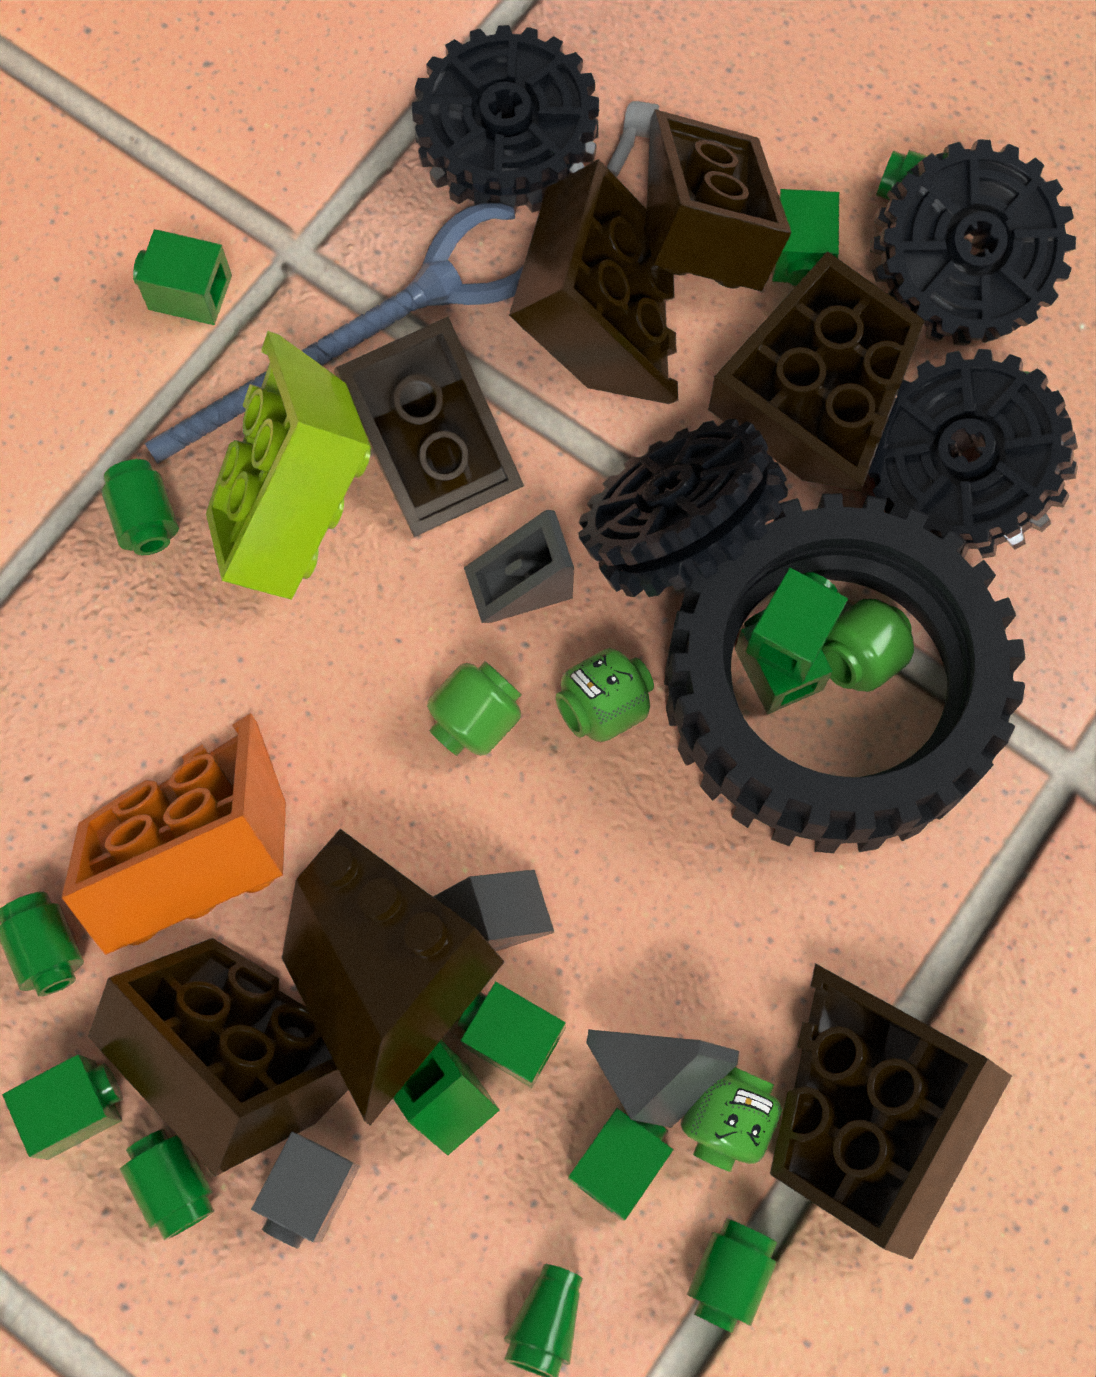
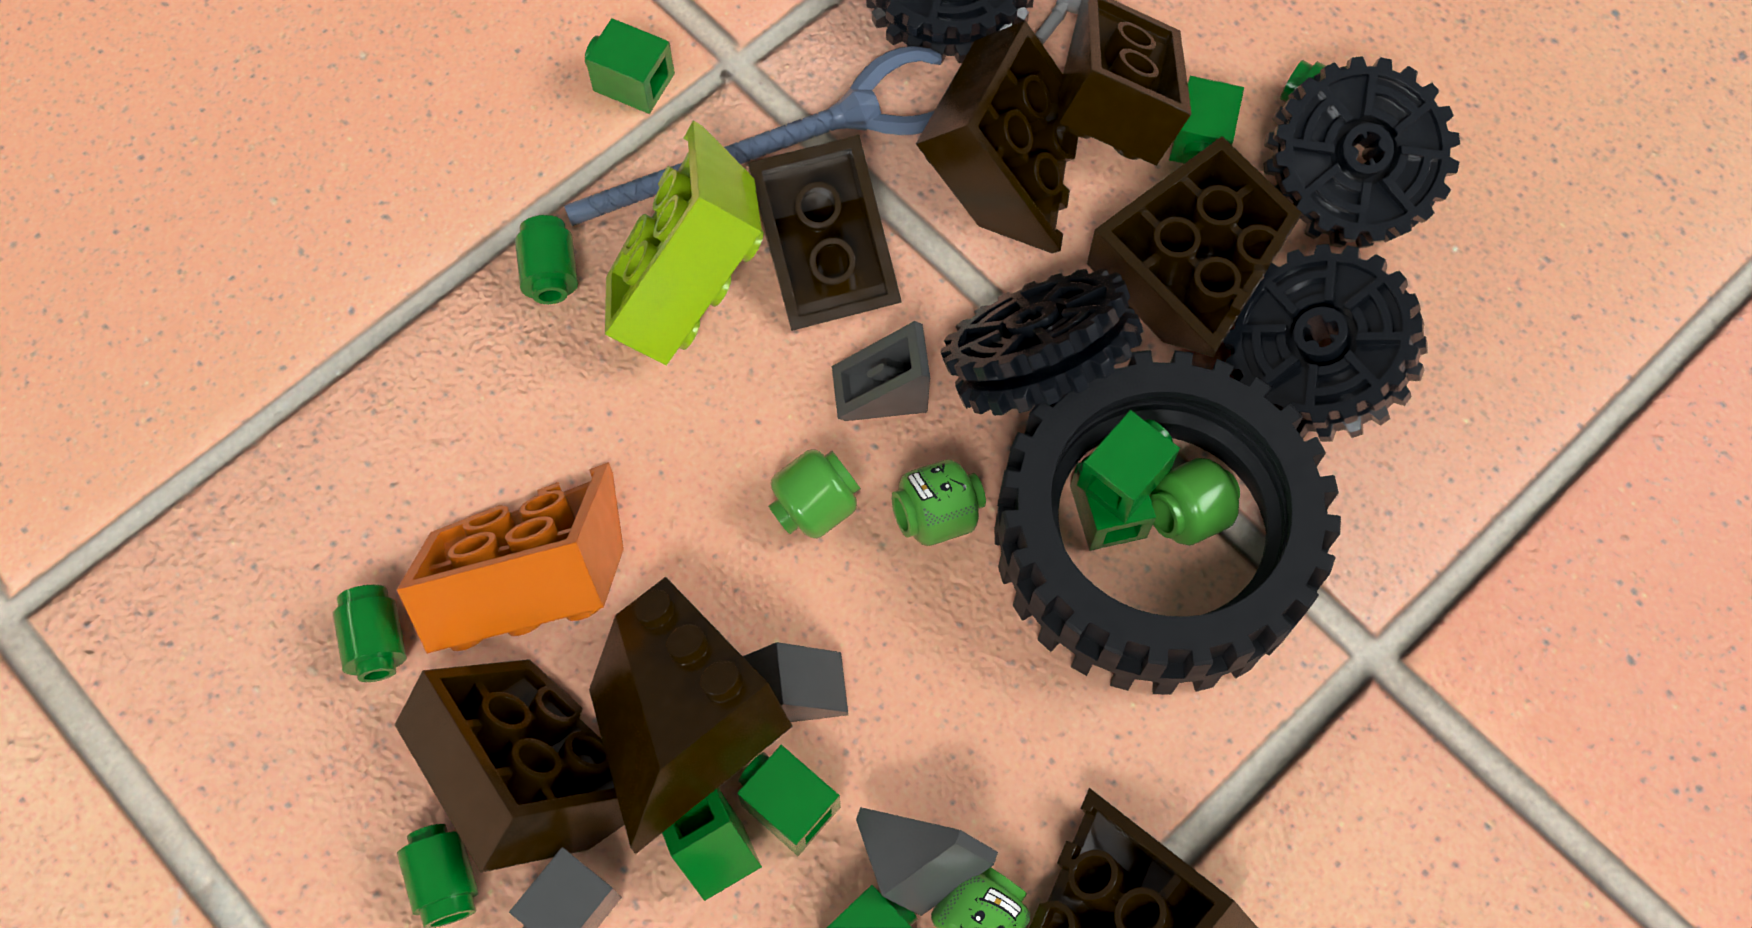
camera: 10 degrees right, 5 degrees down
(64, 1106) = (359, 786): green brick -> none

